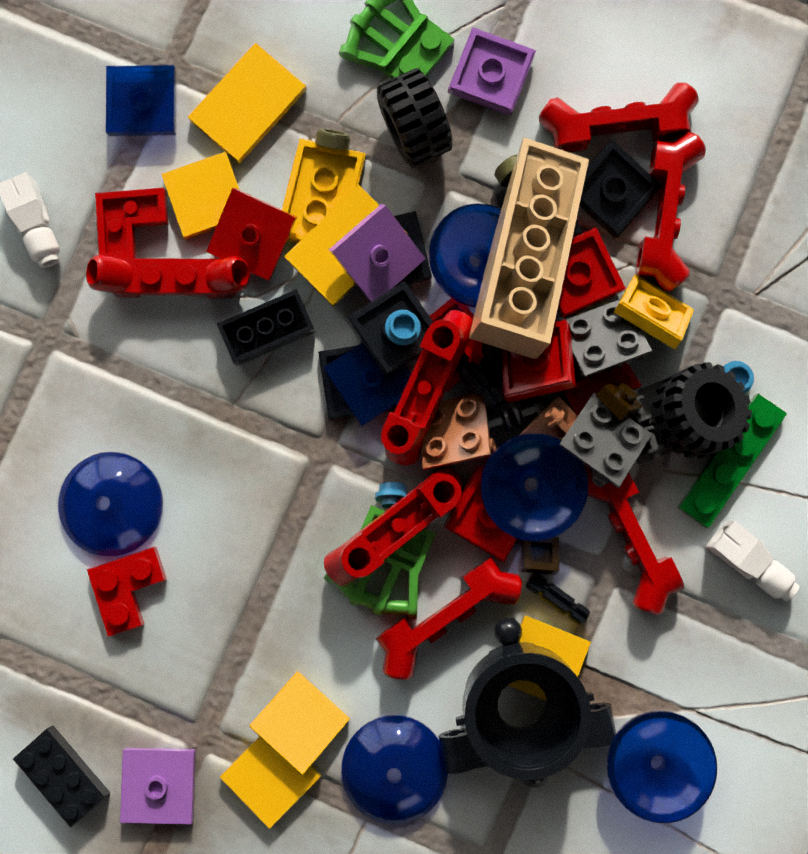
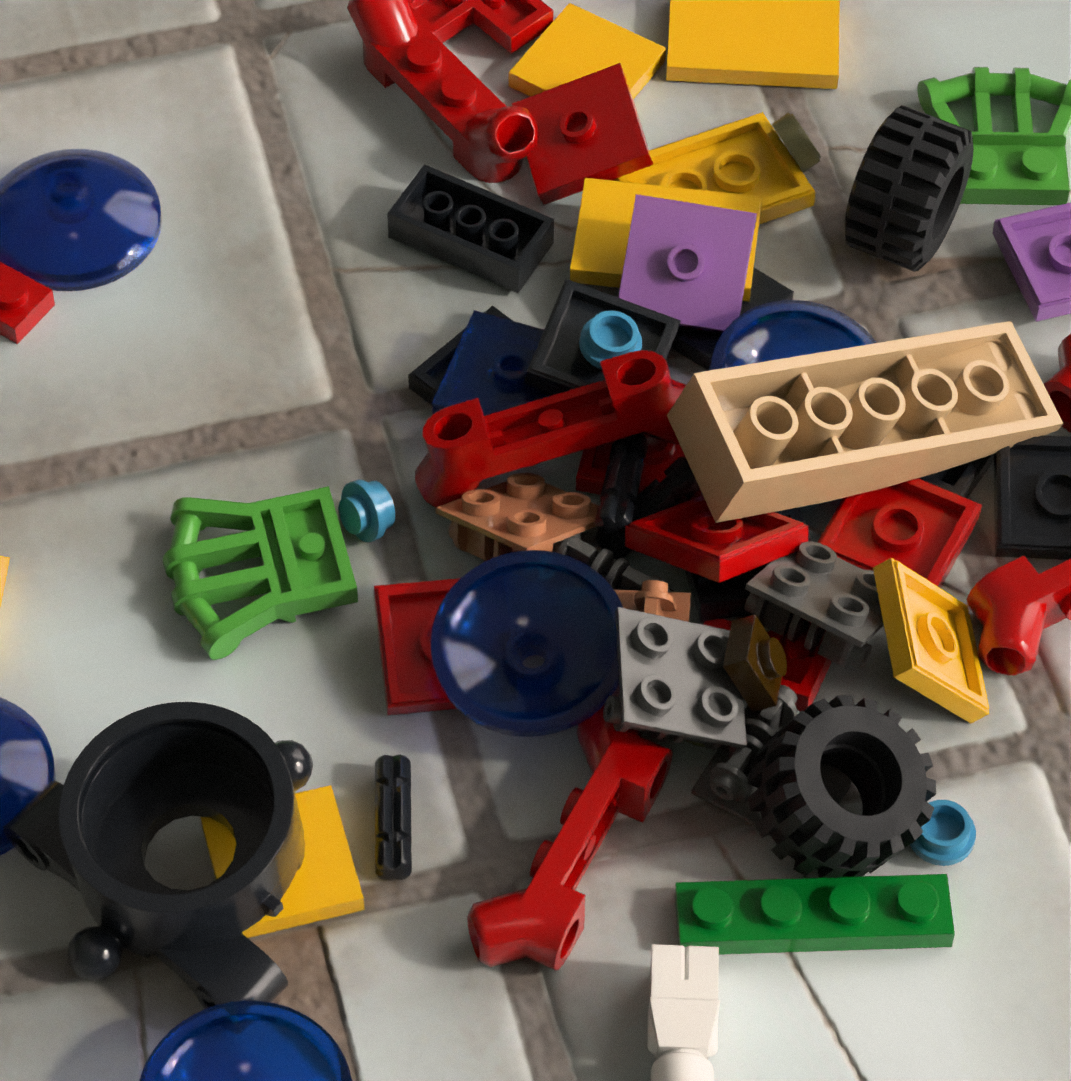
camera: 45 degrees right, 30 degrees down
(394, 527) = (249, 489): red plate -> none
(402, 642) = (166, 653): red plate -> none
(540, 556) = (439, 743): dark brown plate -> none

